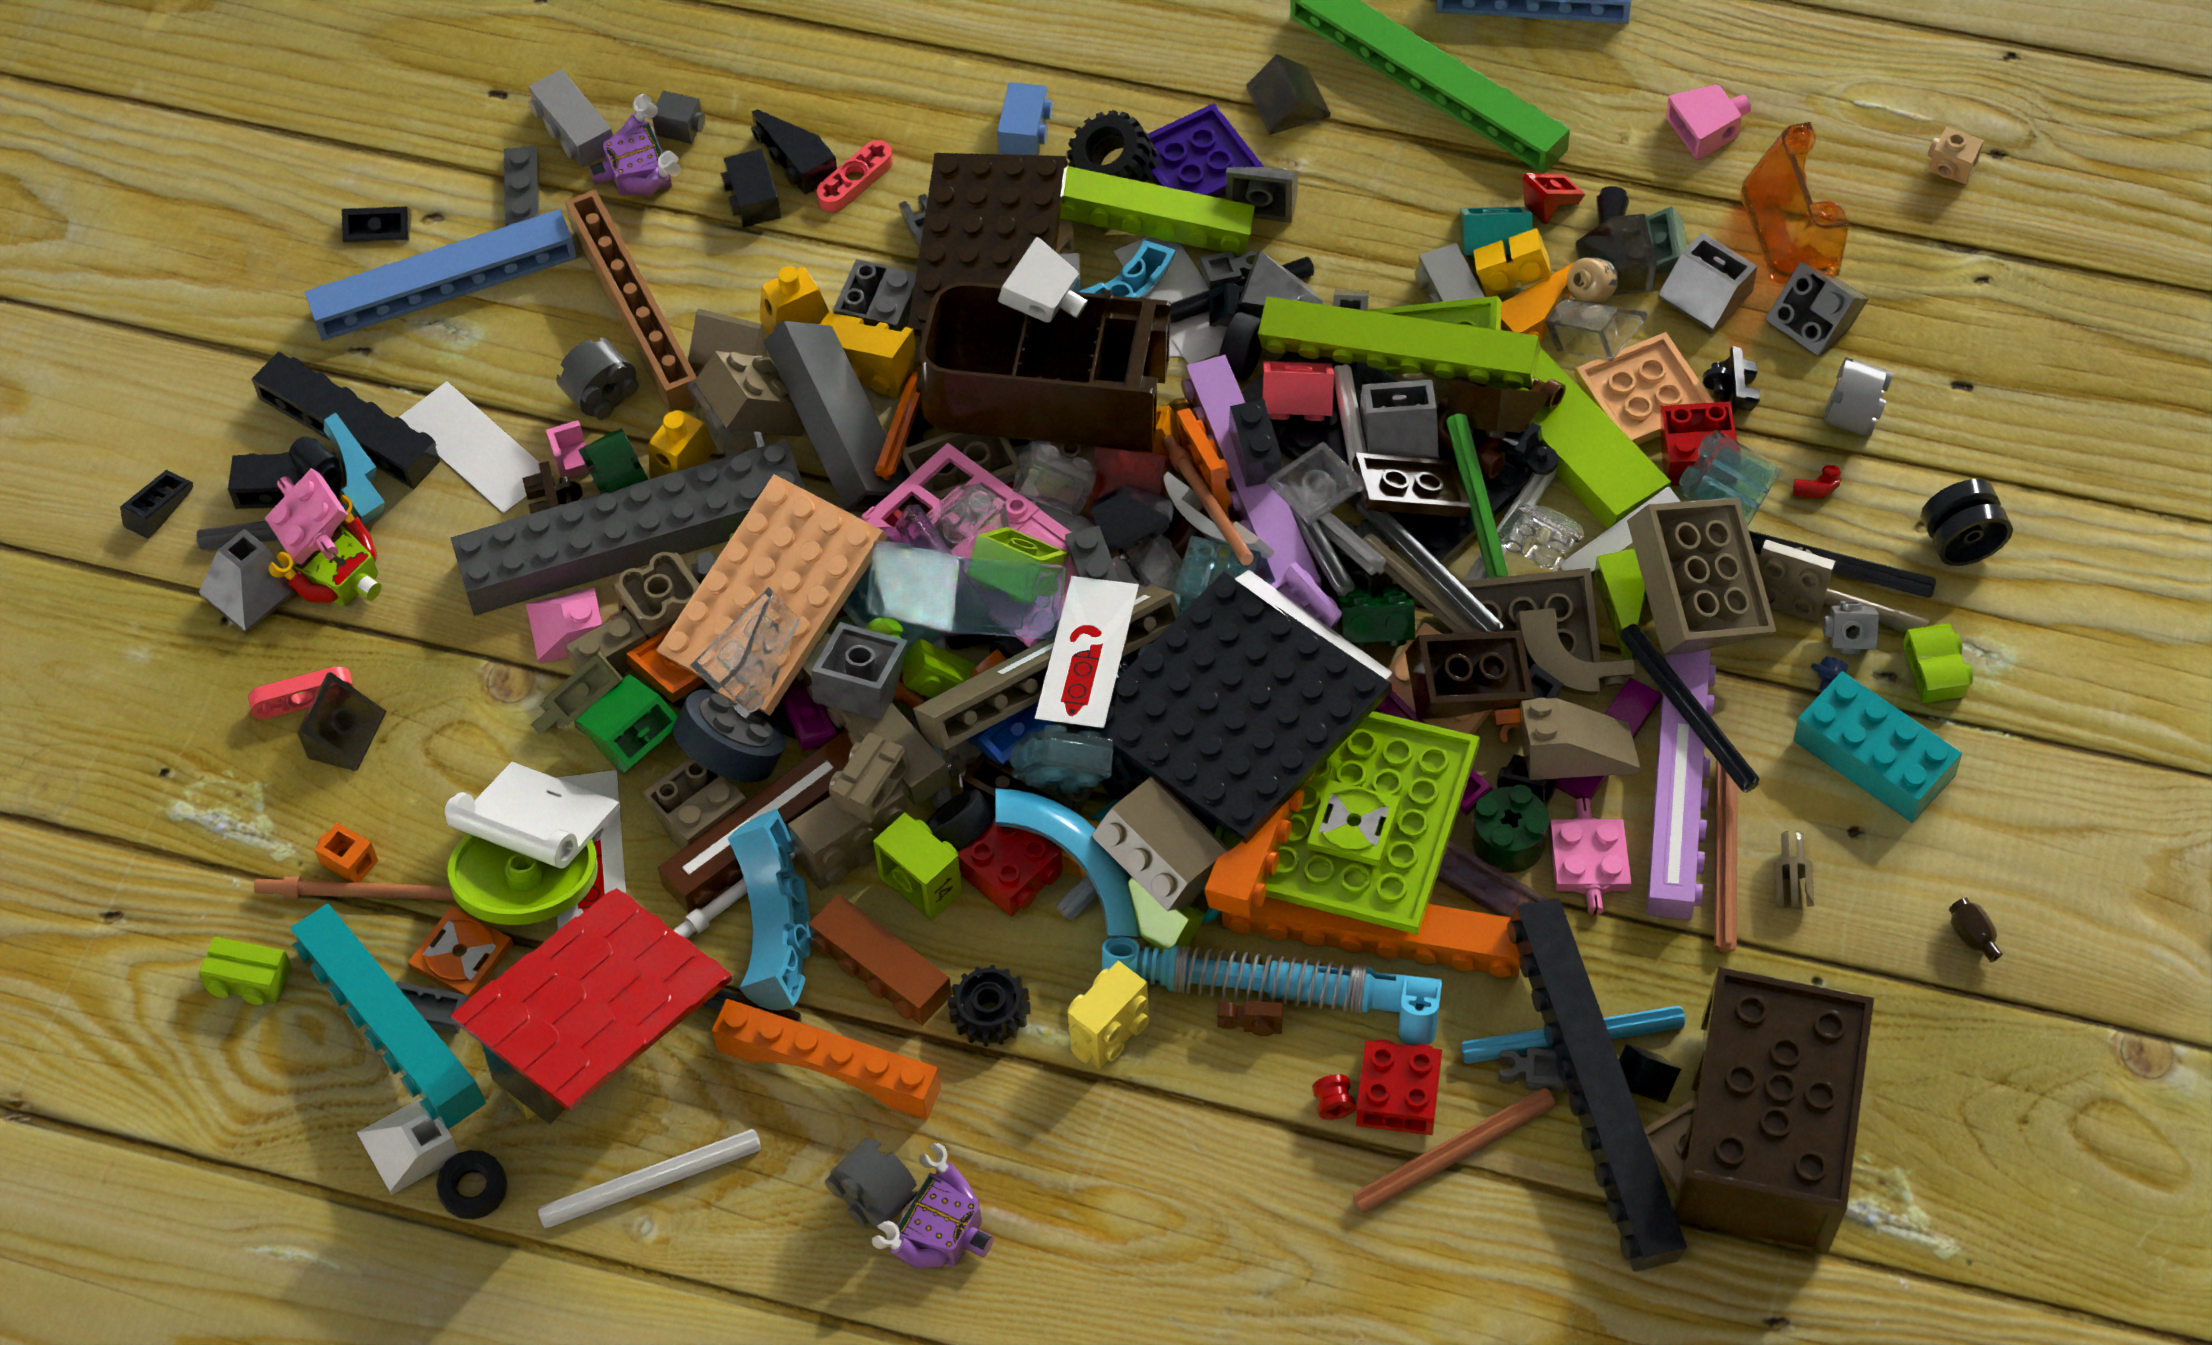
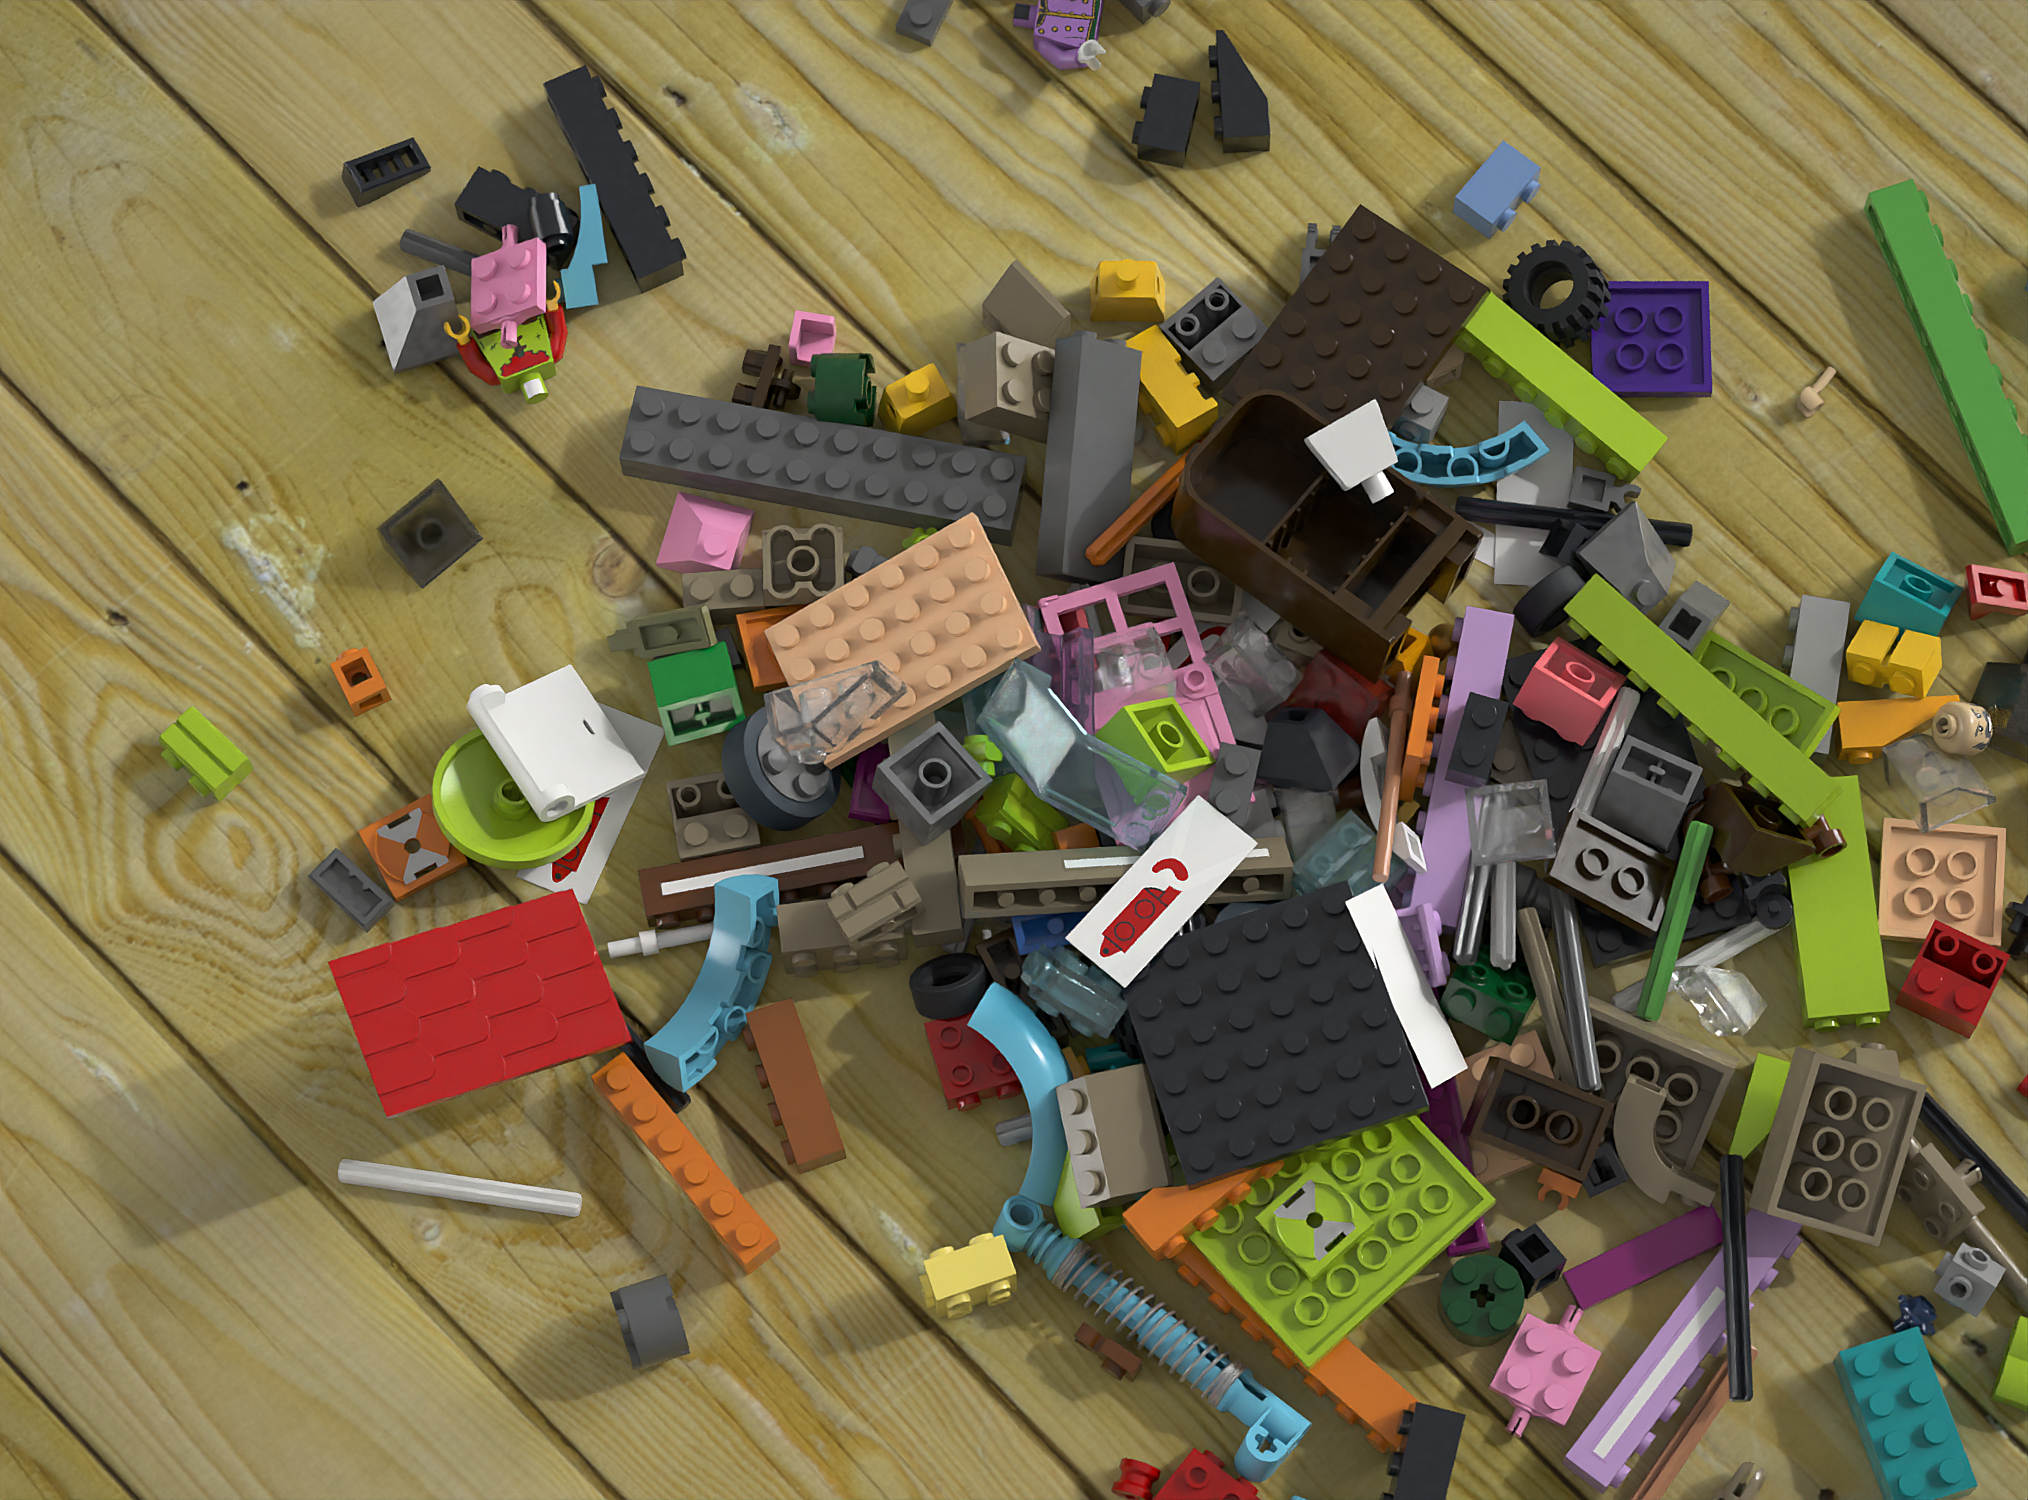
camera: 30 degrees right, 15 degrees up
(281, 696) = (407, 472): coral beam -> none
(294, 887) = (297, 688): nougat bar -> none
(387, 1016) = (302, 887): teal brick -> none
(407, 1146) = (260, 1024): white slope -> none
(441, 274) = (798, 53): medium blue brick -> none
(459, 1166) = (284, 1077): black tyre -> none
(474, 445) = (726, 274): white sticker -> none
(597, 377) = (882, 273): dark grey brick -> none
(632, 299) = (968, 195): medium nougat brick -> none
(857, 163) = (1292, 146): coral beam -> none
(918, 865) = (882, 1009): lime brick -> none
(939, 1221) = (694, 1391): medium lavender torso -> none
(984, 987) = (876, 1216): black gear -> none
(1268, 189) = (1692, 422): flat silver slope -> none
(1286, 95) = (1795, 311): clear smoke slope -> none
(1337, 143) = (1809, 400): none -> tan hand
(1484, 882) = (1425, 1350): plate -> none
(1574, 741) = (1601, 1249): dark tan slope -> none
(1613, 539) = (1817, 1037): white sticker -> none
(1729, 471) = (1947, 1046): clear light blue brick -> none

